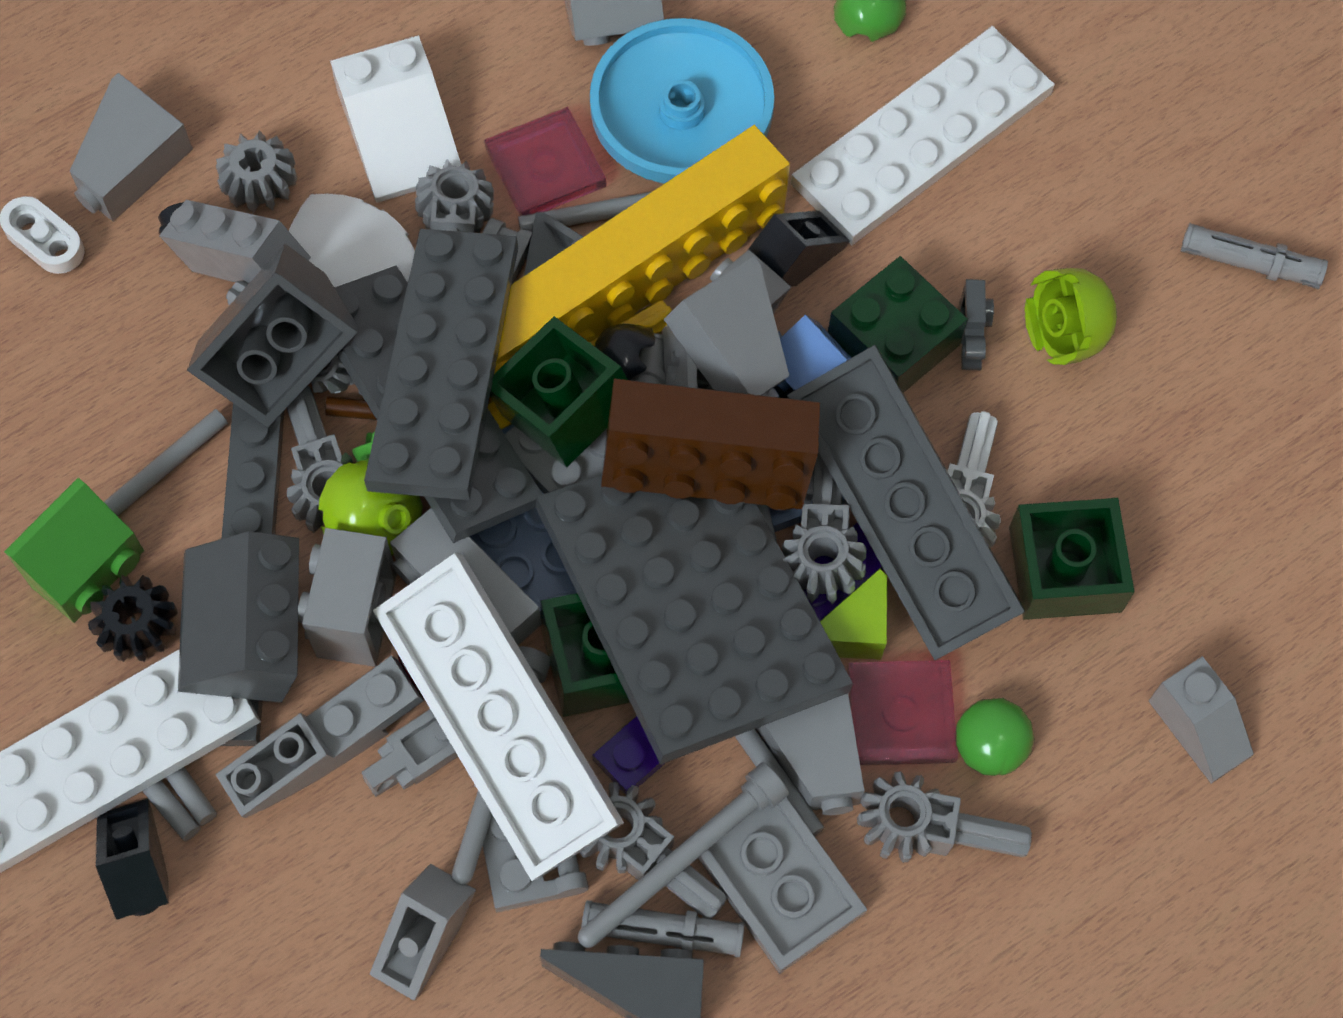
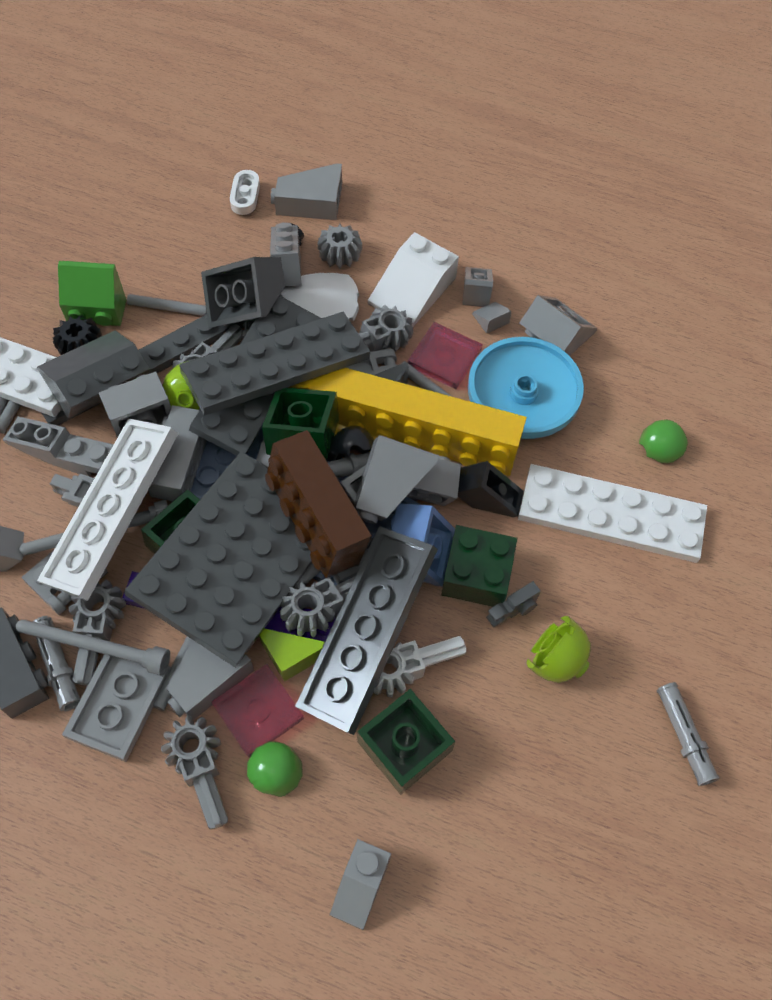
camera: 55 degrees right, 5 degrees down
(473, 42) = (477, 286): none -> light grey slope
(528, 65) = (492, 316): none -> light grey slope

